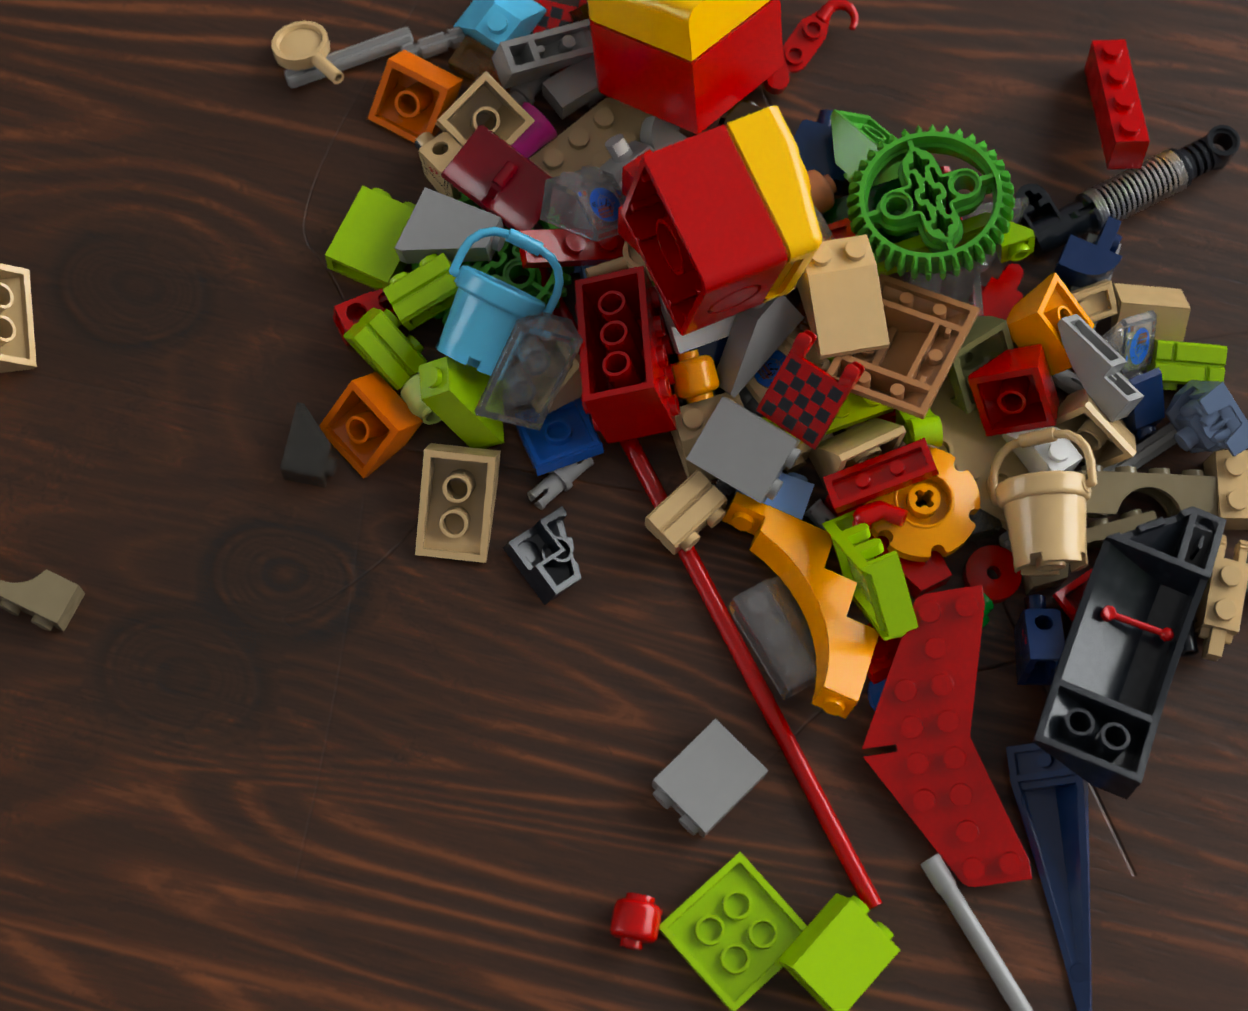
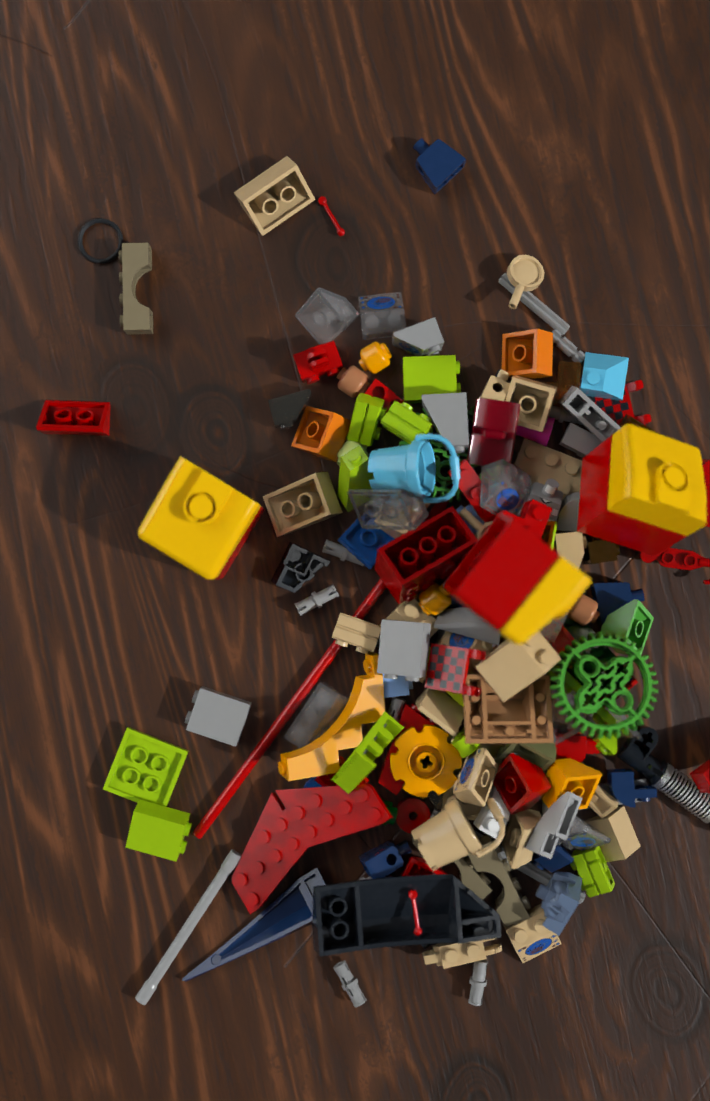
camera: 70 degrees right, 15 degrees up
(39, 261) = (323, 202): none -> red hinge
(80, 82) = (437, 163): none -> dark blue torso
(145, 768) = (75, 418): none -> red slope
(204, 333) = (326, 315): none -> clear slope
(250, 259) = (381, 315): none -> clear slope
(264, 377) = (318, 362): none -> red brick
(303, 296) = (375, 357): none -> light orange head
(313, 219) = (420, 339): none -> light grey slope
(320, 344) = (352, 381): none -> nougat head
(405, 638) = (199, 521): none -> yellow piece
(608, 551) = (316, 599): none -> light grey pin
(636, 920) = (124, 714): red head -> none
(878, 511) = (404, 740): red arm -> none
(880, 475) = (425, 732): red plate -> none
(979, 443) = (476, 778): none -> tan slope
(1203, 787) = (349, 983): none -> light grey pin

